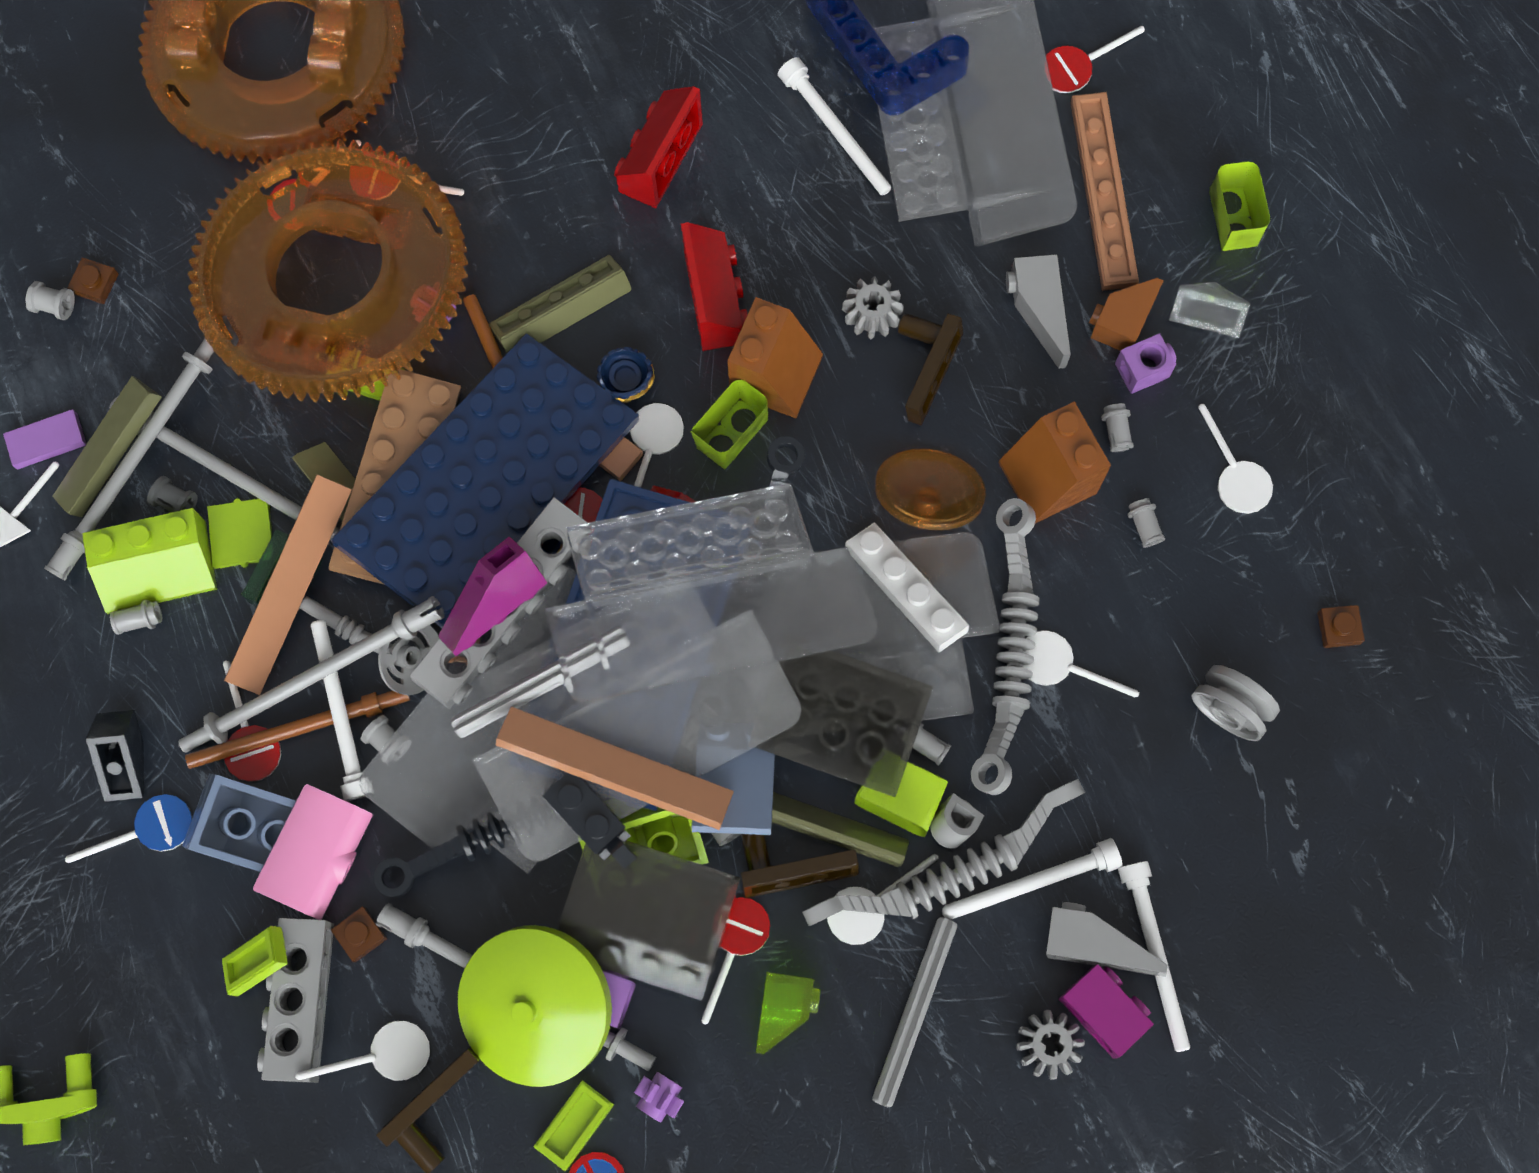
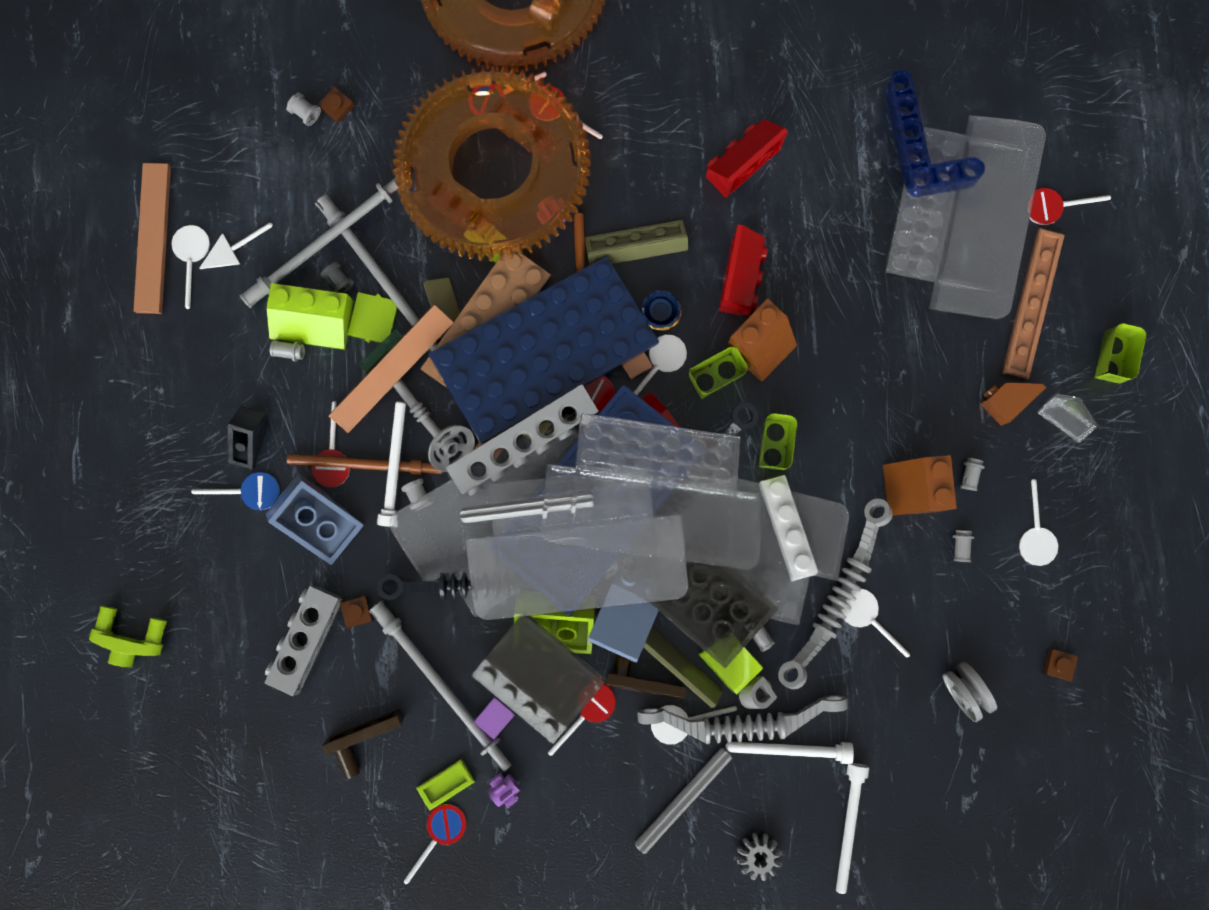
camera: 20 degrees right, 10 degrees up
(44, 439) = (269, 204): medium lavender tile -> none
(106, 447) = (306, 227): olive slope -> none
(254, 961) = (285, 606): lime tile -> none
(313, 852) = (345, 550): bright pink panel -> none
(396, 1052) = (353, 695): white piece -> none
(403, 625) = (454, 431): light grey bar -> none
(492, 592) = (518, 436): magenta slope -> none
(534, 1005) = (448, 704): lime dish -> none
(590, 818) = (526, 607): black hinge -> none
(614, 768) = (553, 583): nougat tile -> none
(784, 1008) = (602, 767): clear neon green slope -> none
(795, 75) = (857, 141): white piece -> none
(850, 453) = (789, 424): none -> lime piece
(877, 295) = (852, 325): light grey gear -> none
(930, 489) = (830, 470): clear orange dish -> none
(945, 341) = (882, 368): dark brown piece -> none
(1040, 302) = (957, 366): light grey slope -> none
(1091, 941) = (809, 802): light grey slope -> none
(1107, 1010) = (802, 851): magenta brick -> none
(1135, 373) = (999, 442): medium lavender brick -> none

